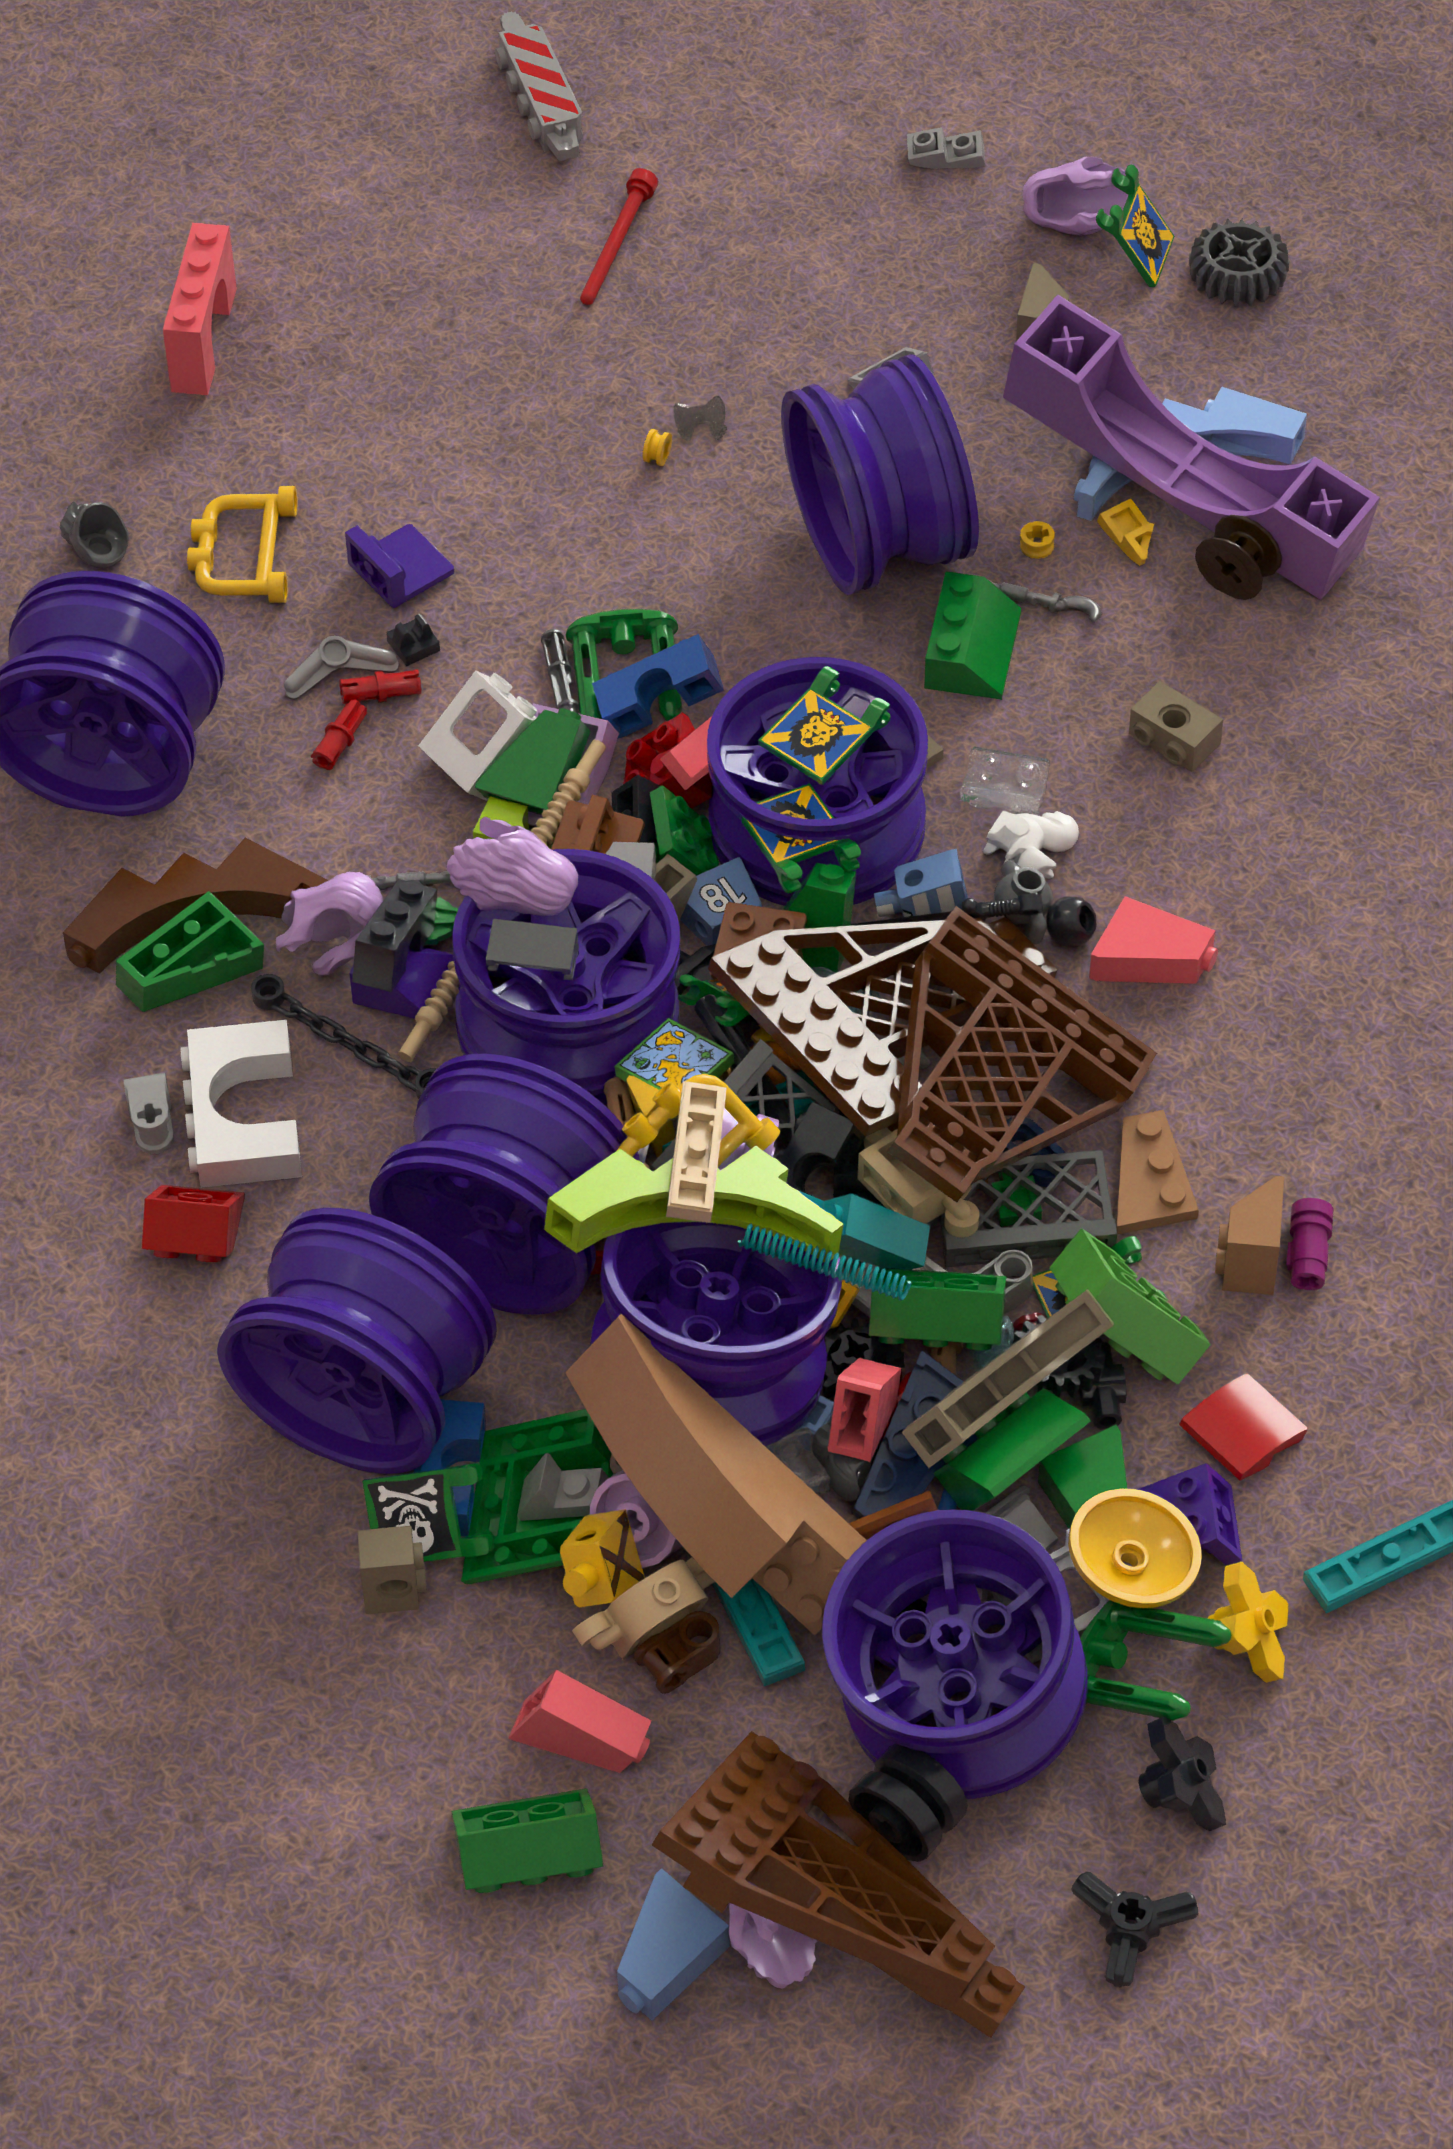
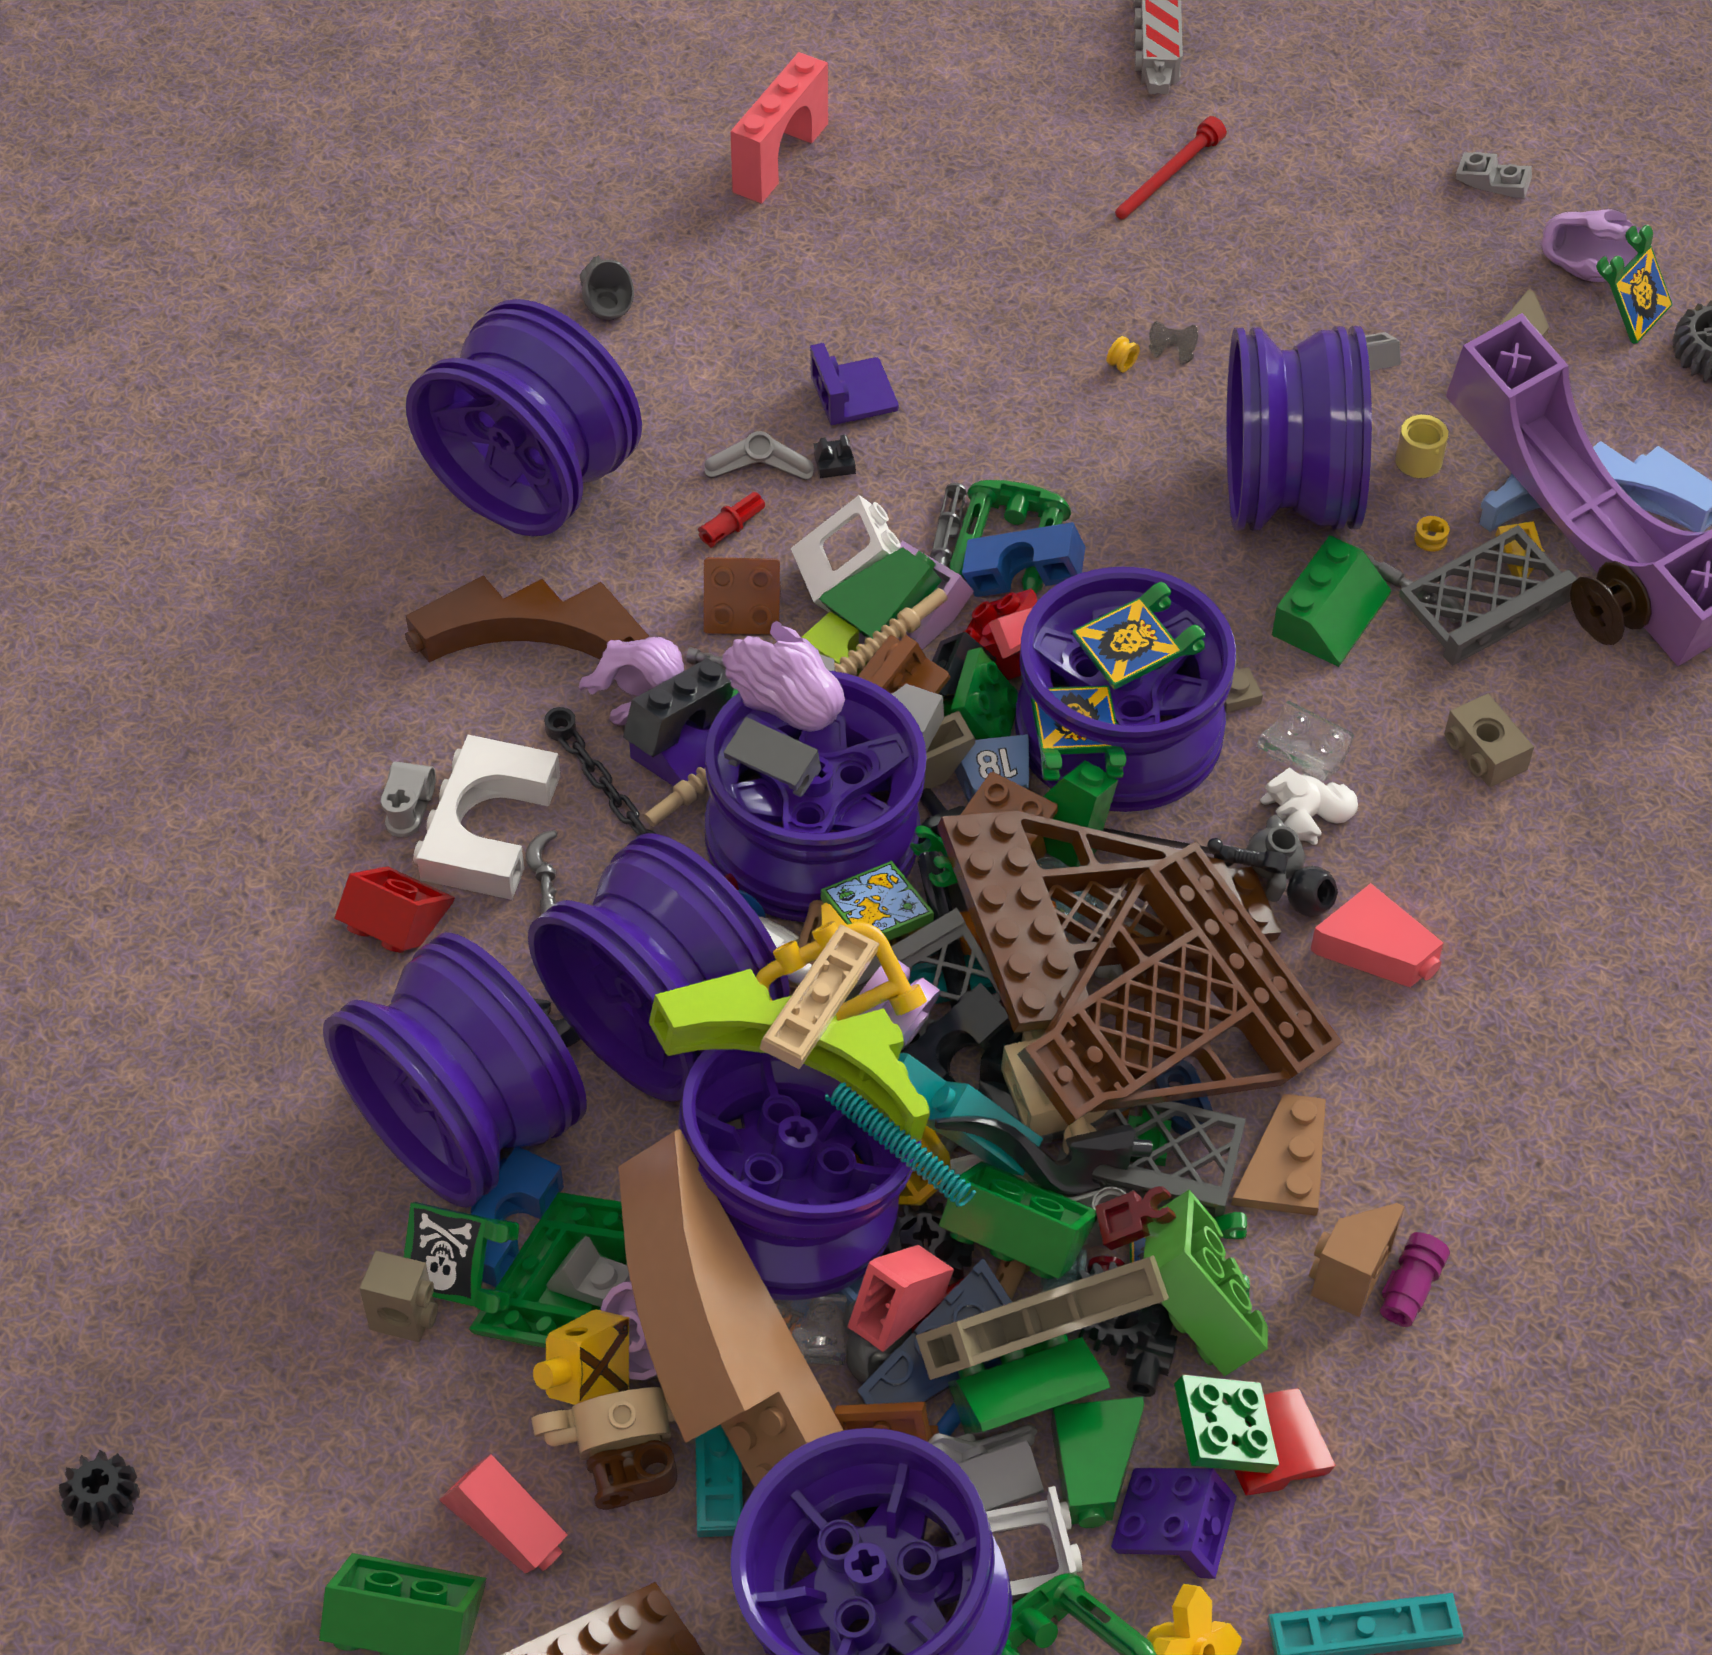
camera: 20 degrees right, 0 degrees up
(189, 955) = (503, 669): green wedge -> none
(203, 1847) = (99, 1491): none -> black gear
(205, 532) = (703, 313): yellow bar -> none
(325, 1141) = (544, 871): none -> flat silver piece
(380, 686) = (786, 488): red pin -> none
(391, 808) = (741, 595): none -> dark orange bracket
(925, 887) = (1187, 816): medium blue torso -> none
(974, 1226) = (1067, 1176): none -> black piece
(993, 454) = (1421, 446): none -> light yellow piece
(1037, 1270) = (1128, 1216): none -> dark red plate
(1139, 1531) = (1117, 1513): yellow dish -> none
(1140, 605) = (1511, 613): none -> dark grey fence
(1194, 1426) = (1214, 1425): none -> plate

